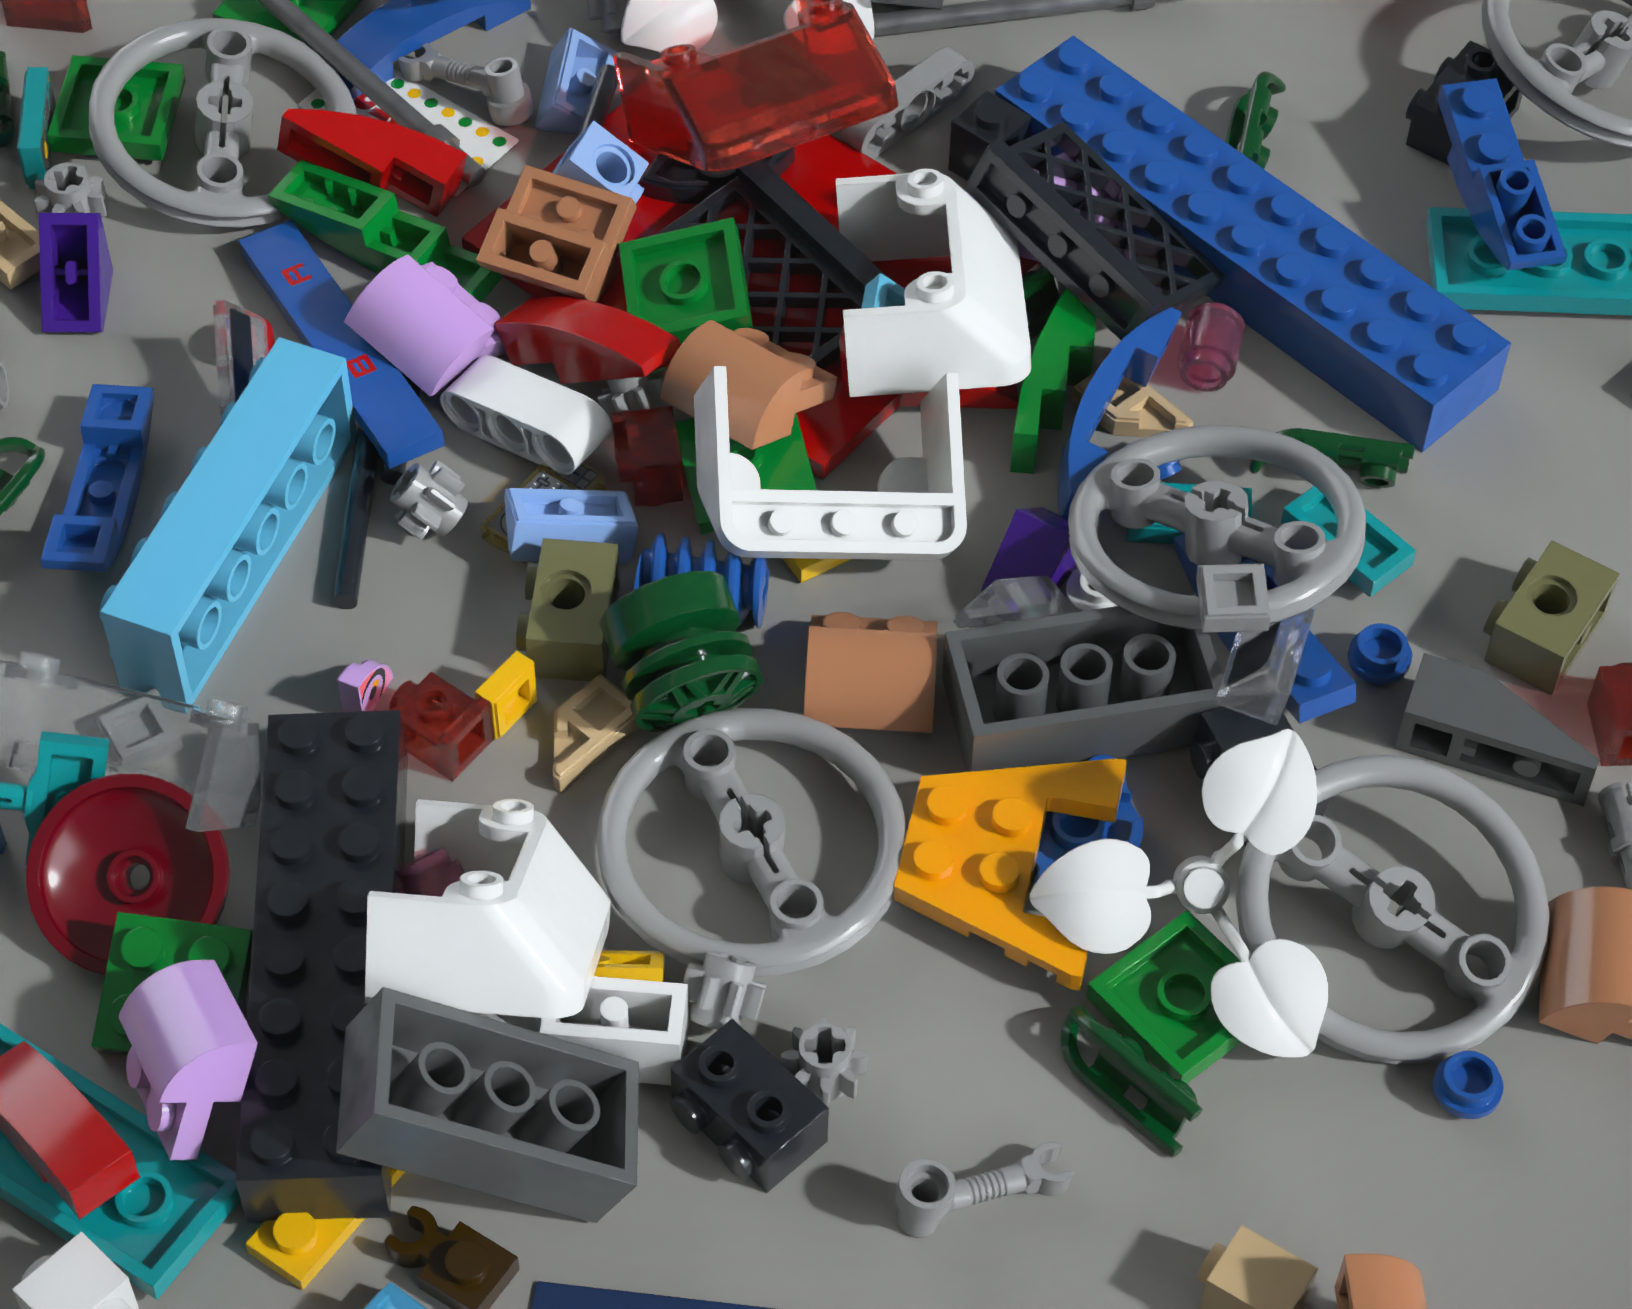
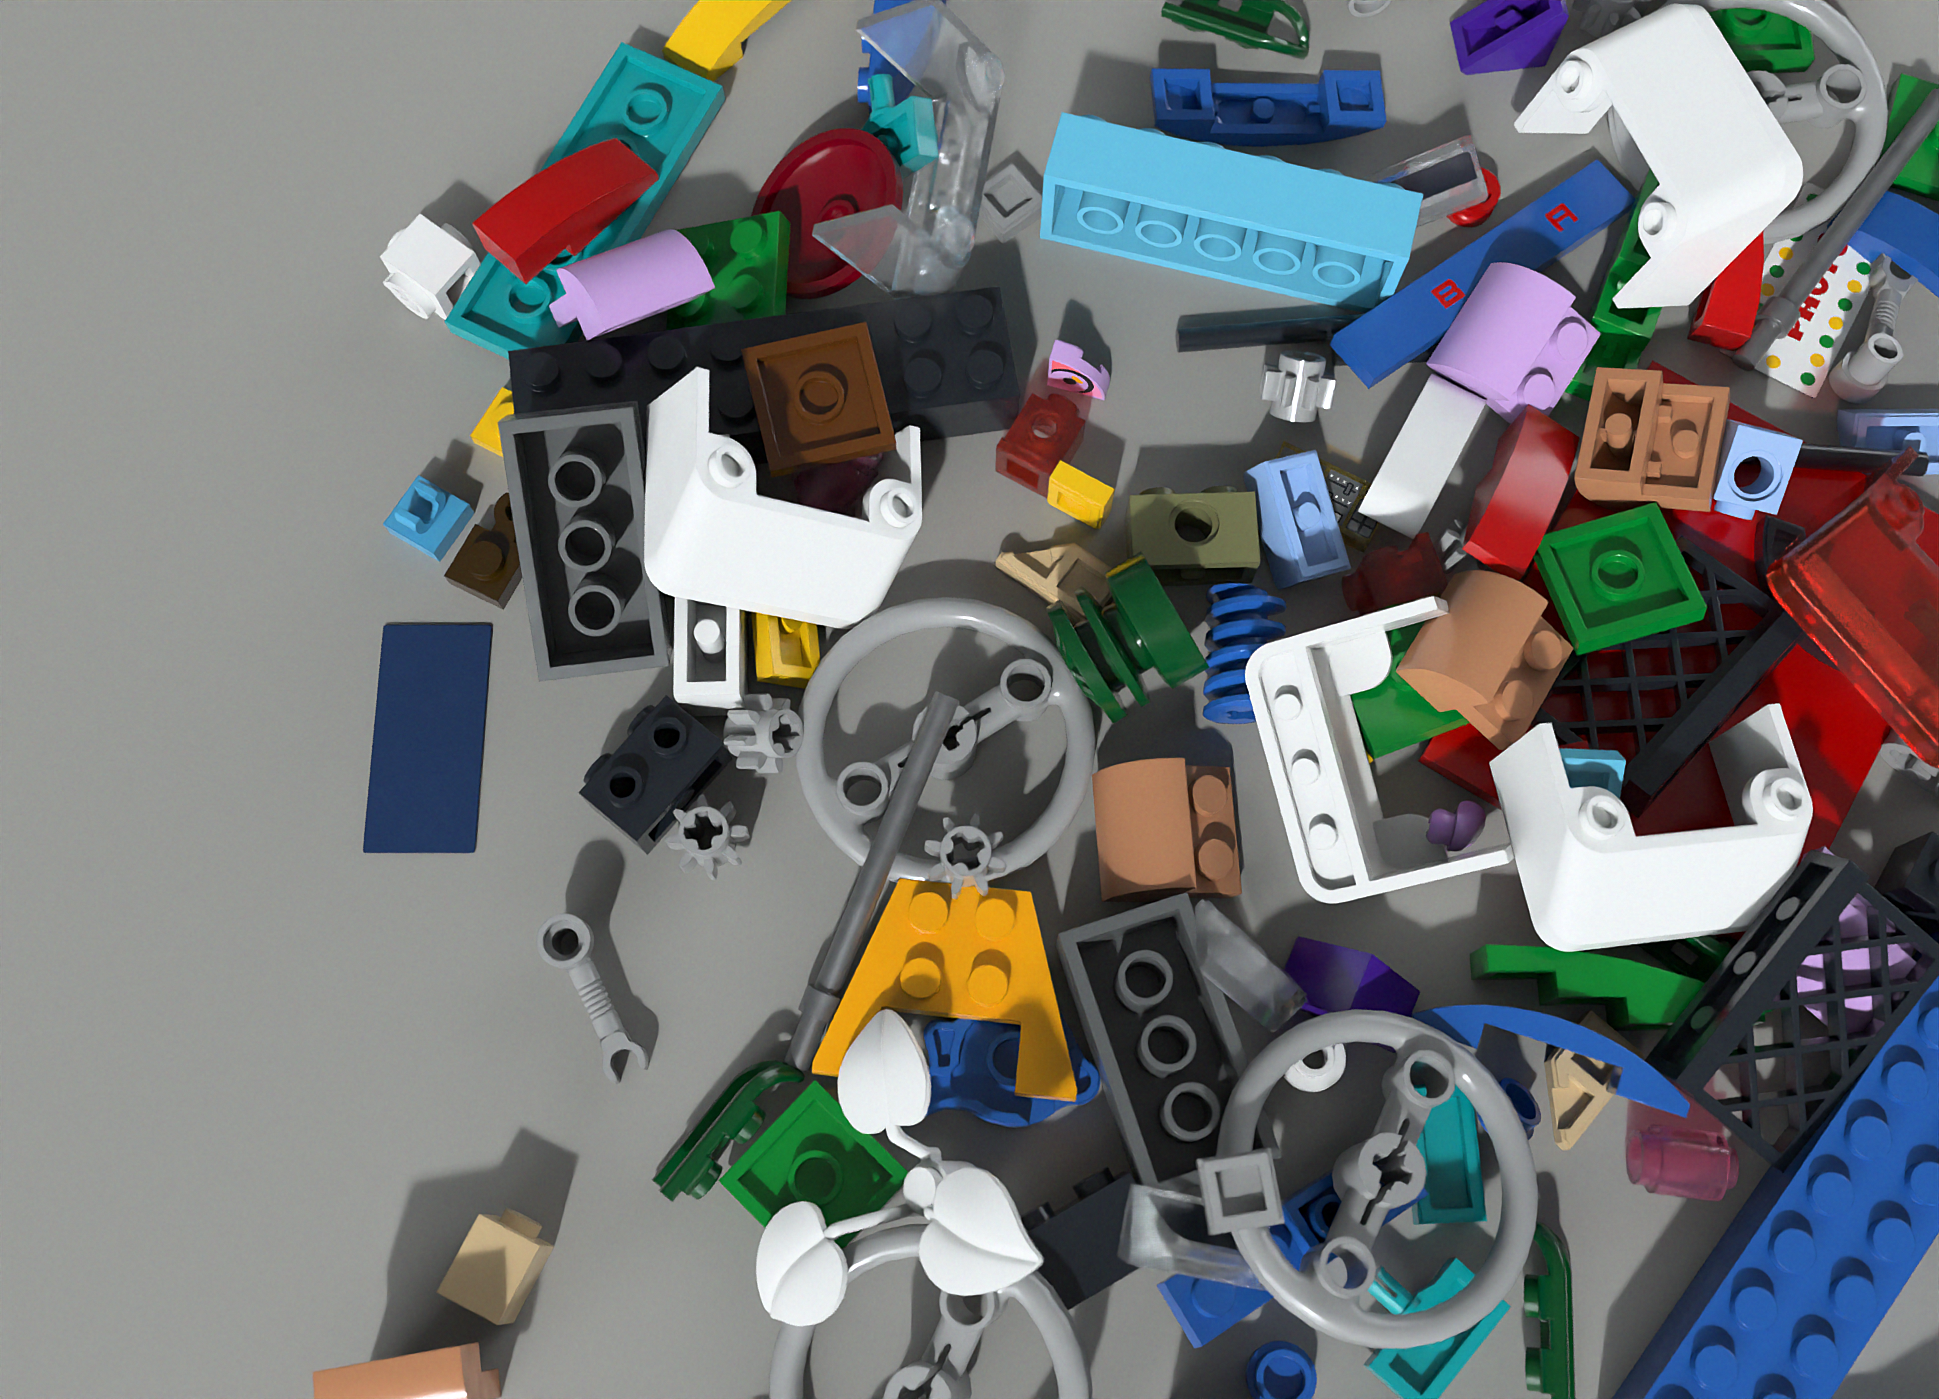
camera: 85 degrees right, 20 degrees up
(267, 120) = (1702, 133): none -> white windscreen
(375, 847) = (819, 399): none -> reddish brown plate
(887, 807) = (971, 839): none -> light grey gear
(900, 439) = (1456, 829): none -> medium lavender arm
(1007, 975) = (823, 998): none -> flat silver bar

